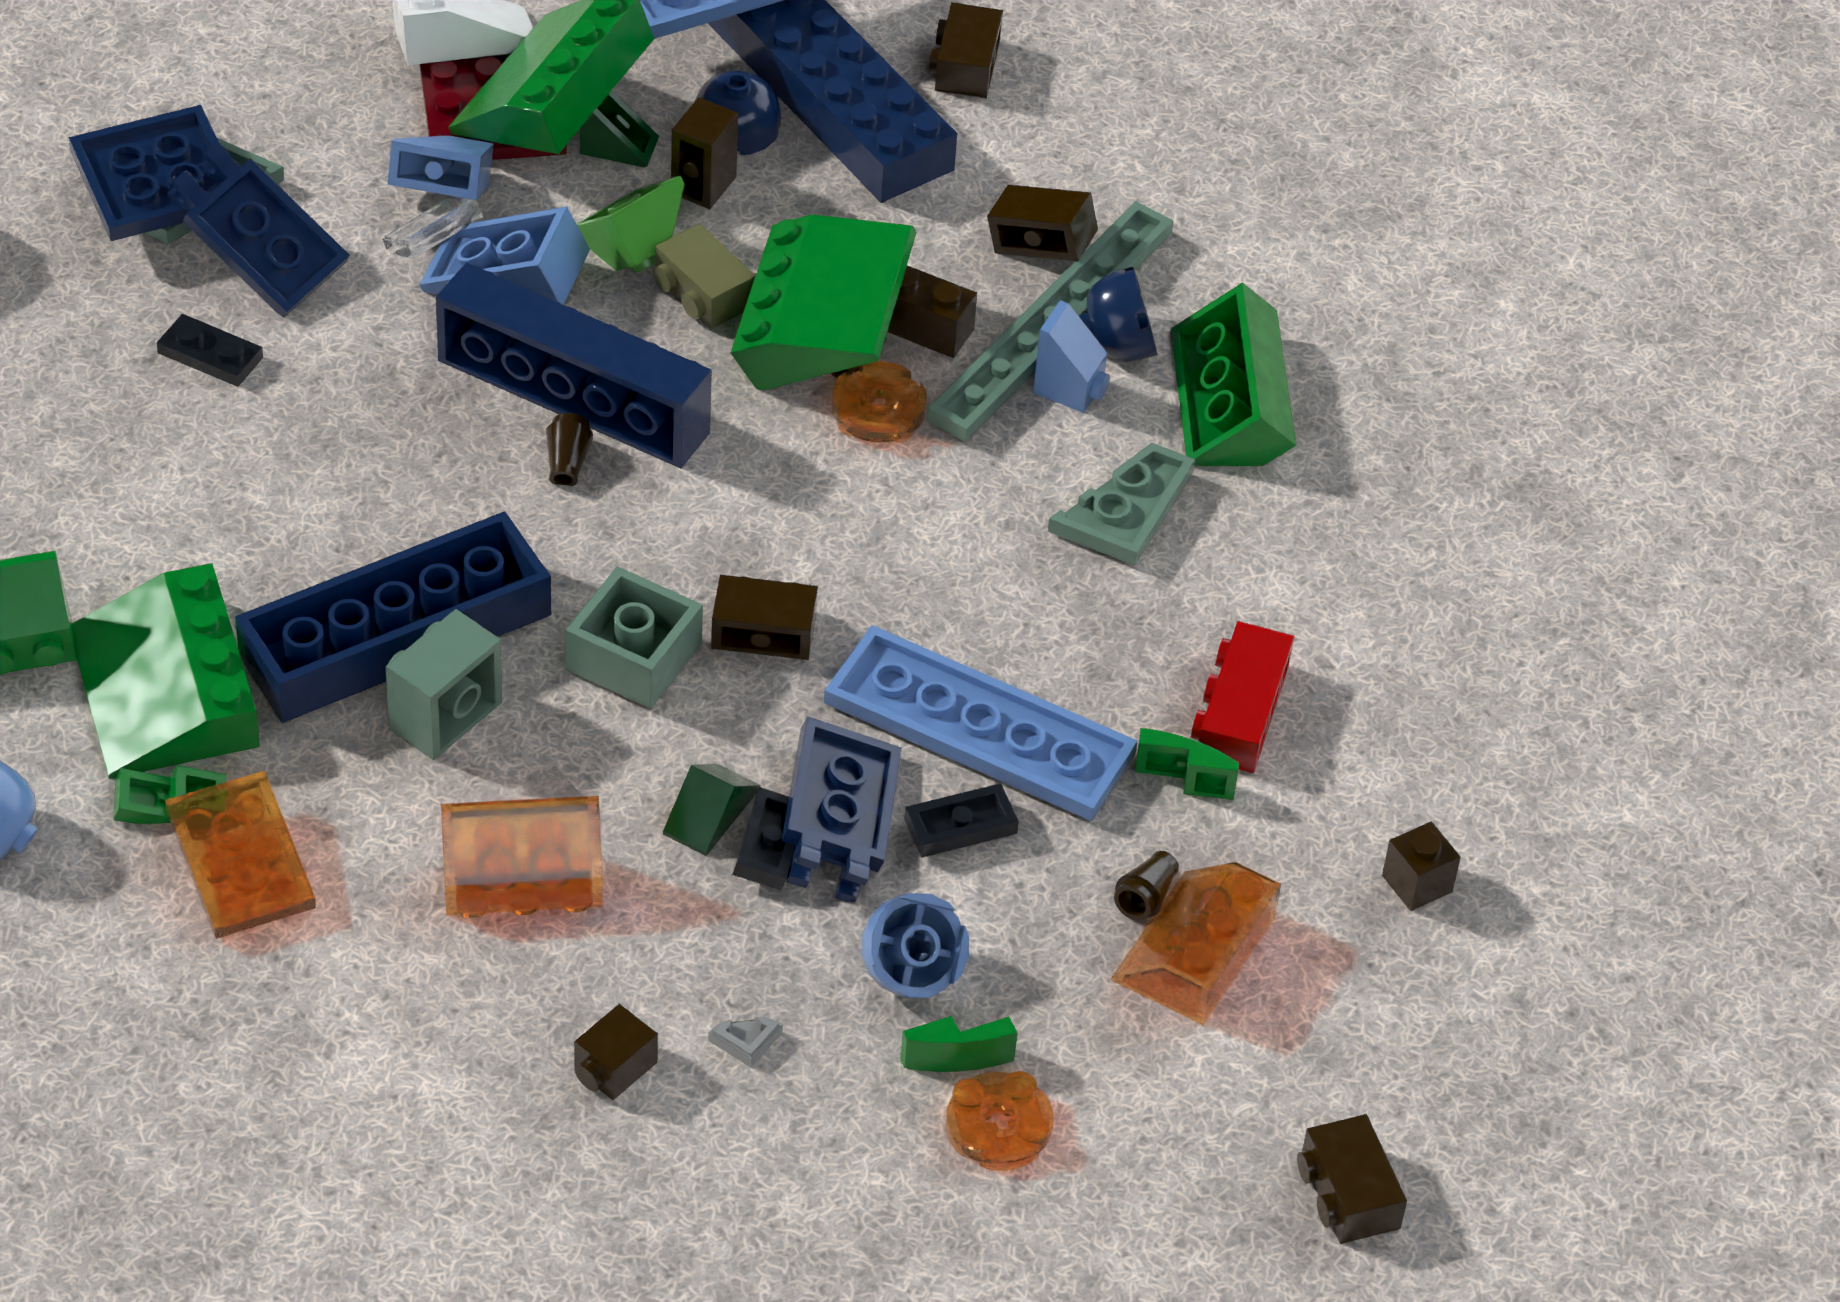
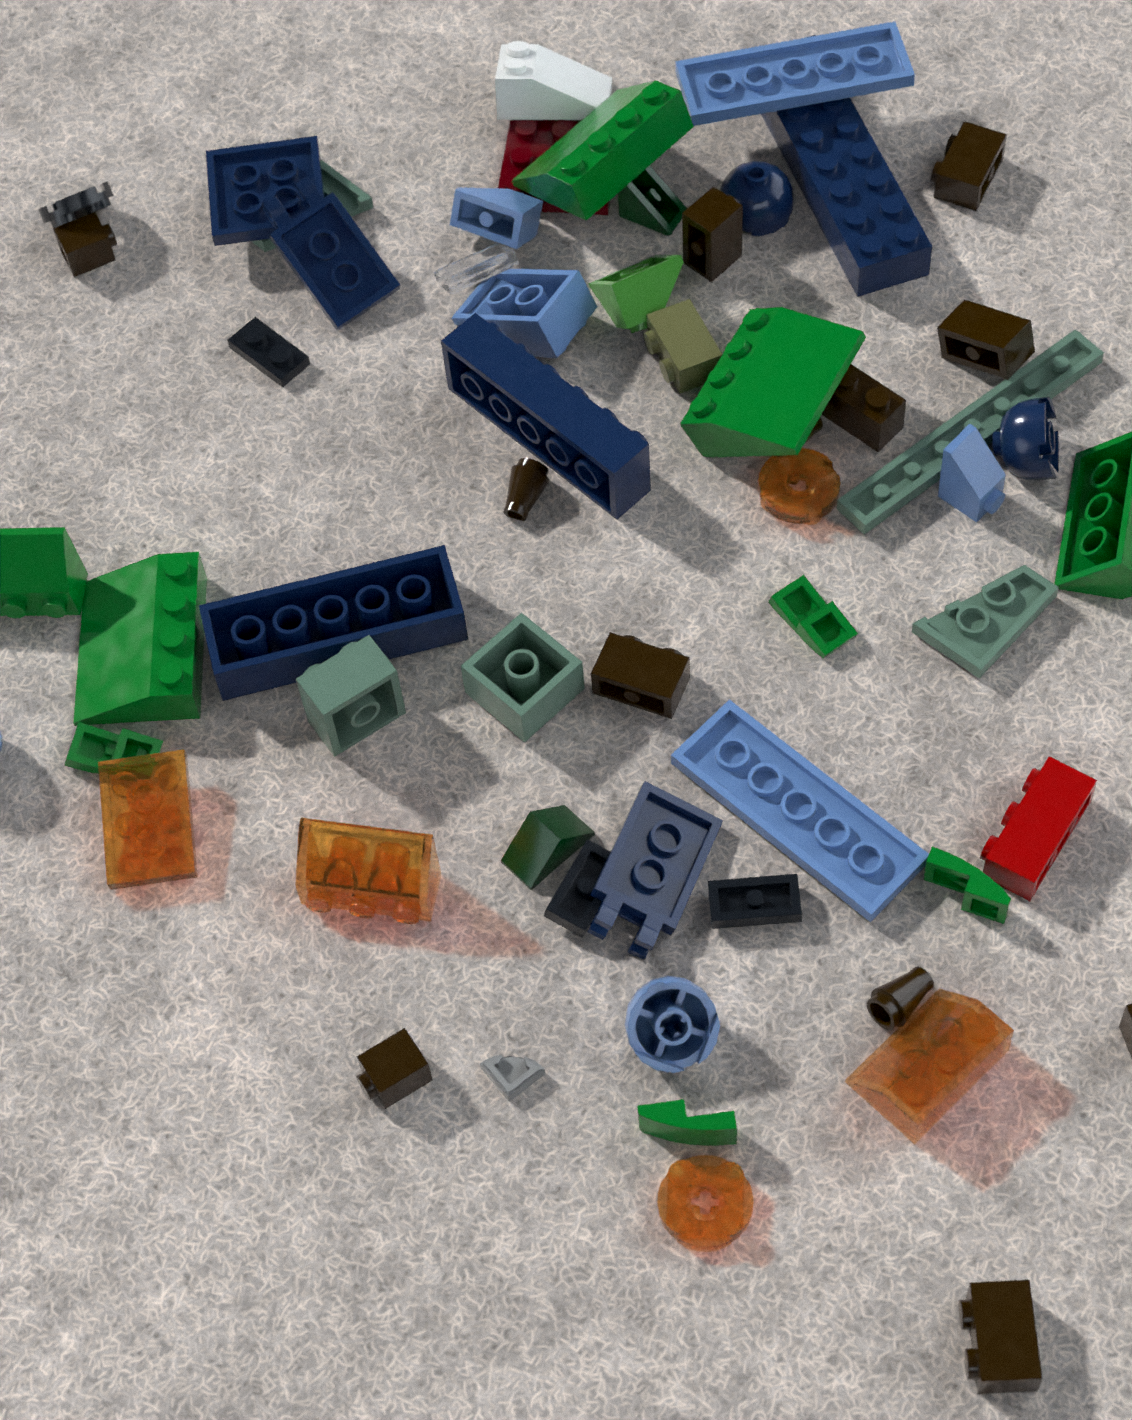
camera: 25 degrees right, 10 degrees up
(945, 540) = (815, 621): none -> green slope

